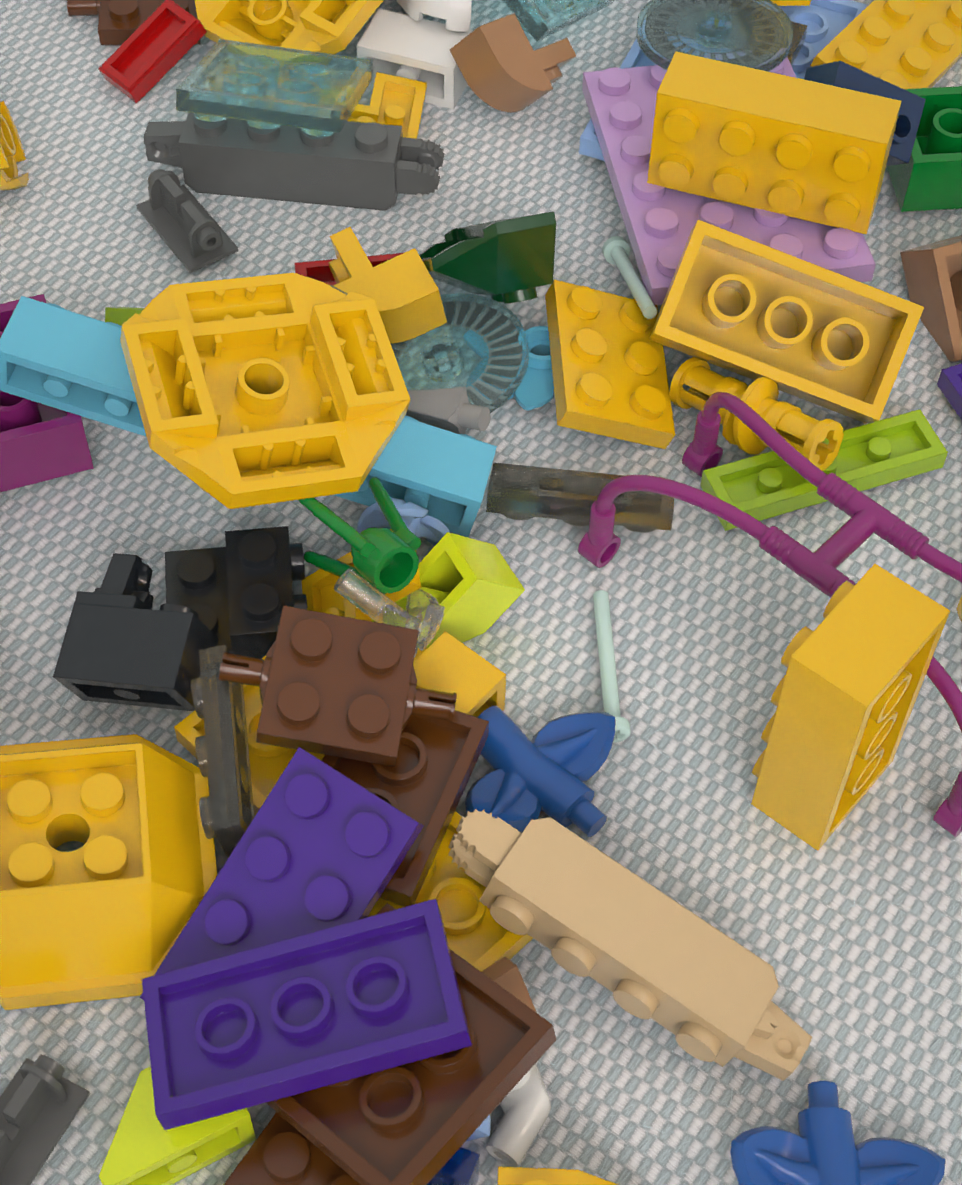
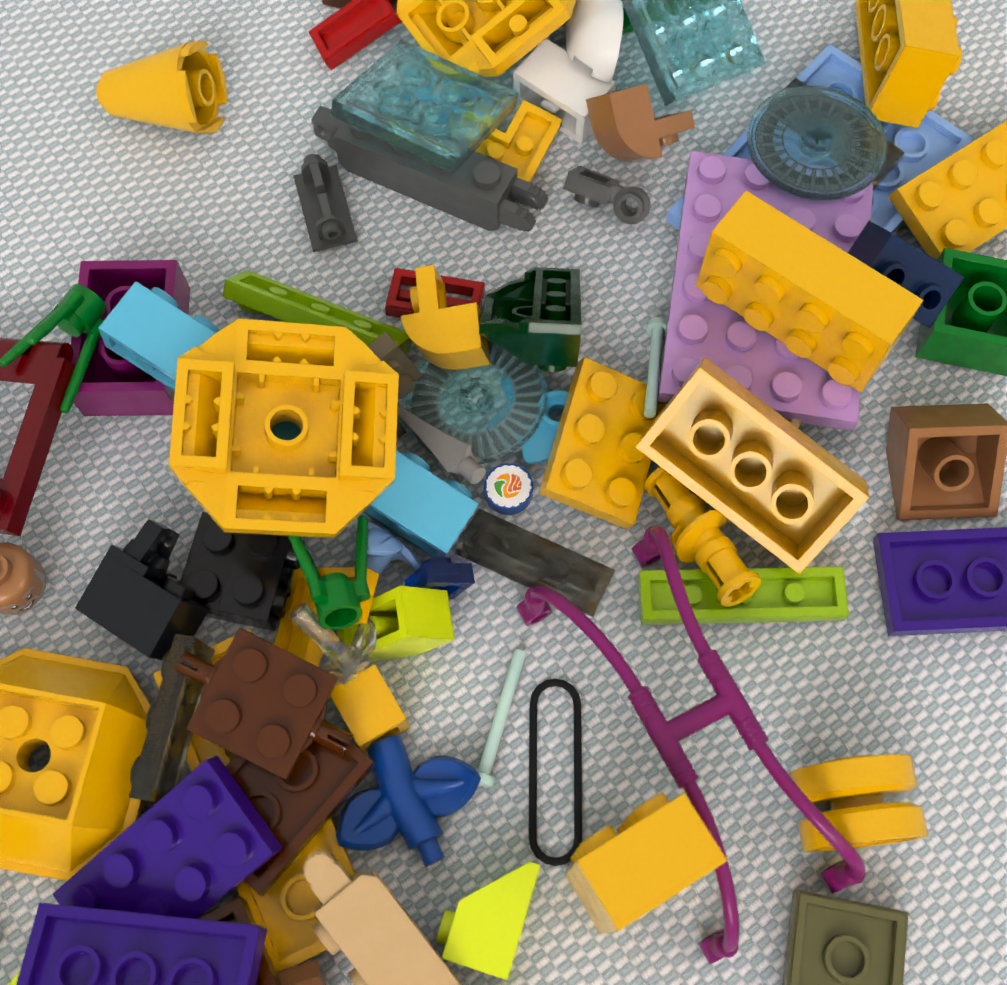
camera: 20 degrees right, 15 degrees up
(488, 137) = (596, 189): none -> dark grey plate
(490, 525) = (442, 575): none -> clear blue plate
(518, 438) = (508, 489): none -> tile
(670, 715) = (533, 772): none -> black piece
(695, 855) = (489, 923): none -> neon yellow slope

